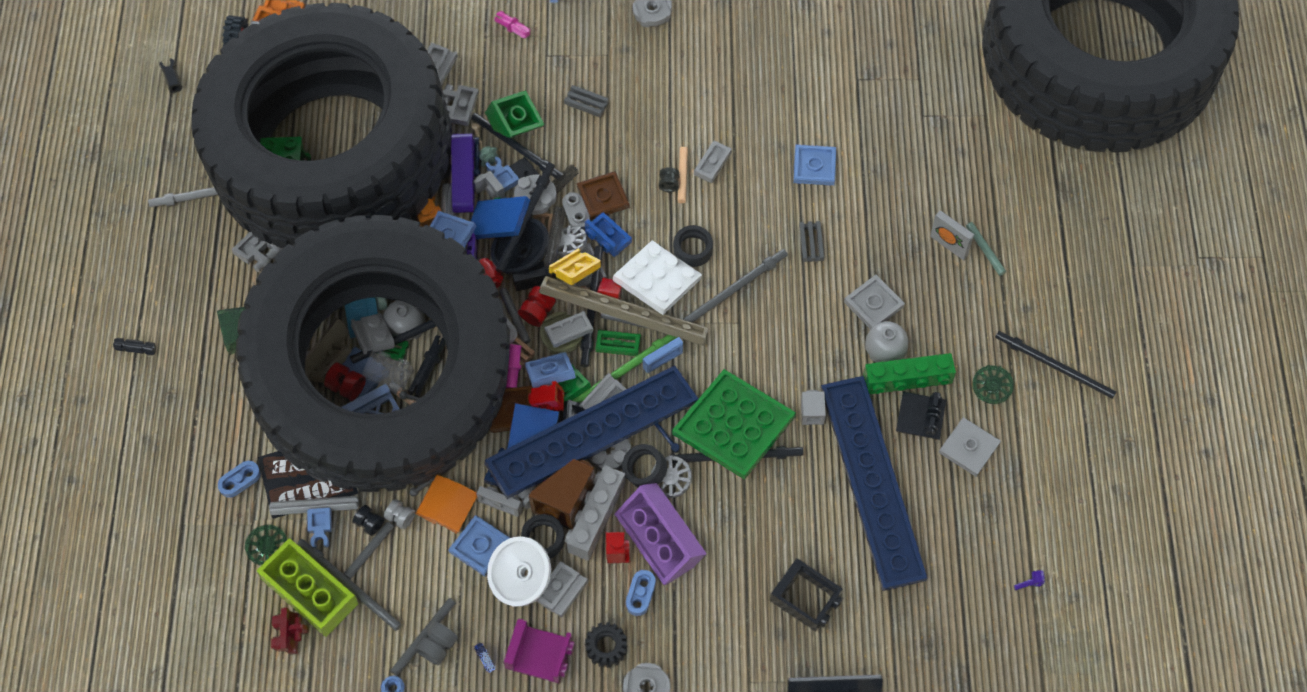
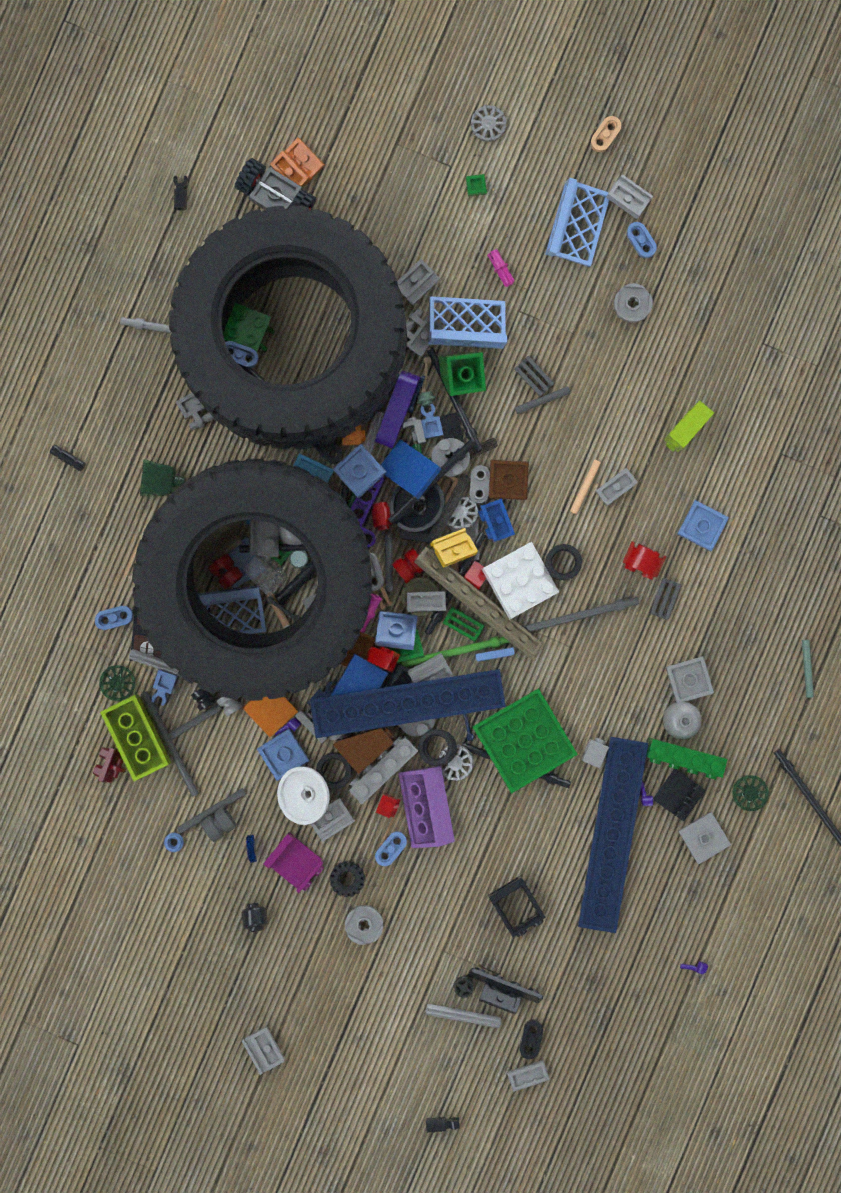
camera: 20 degrees right, 25 degrees up
(417, 347) = (298, 559): none -> light aqua tile
(476, 509) = (293, 724): none -> dark purple hand
(486, 92) = (464, 338): none -> light blue fence
(604, 118) = (542, 400): none -> dark grey bar
(669, 179) = (571, 489): pearl dark grey wheel -> none
(756, 81) = (688, 426): none -> lime window
(771, 209) = (644, 560): none -> red brick
(889, 434) = (645, 800): none -> dark purple hand
(951, 235) = (783, 651): light grey tile -> none

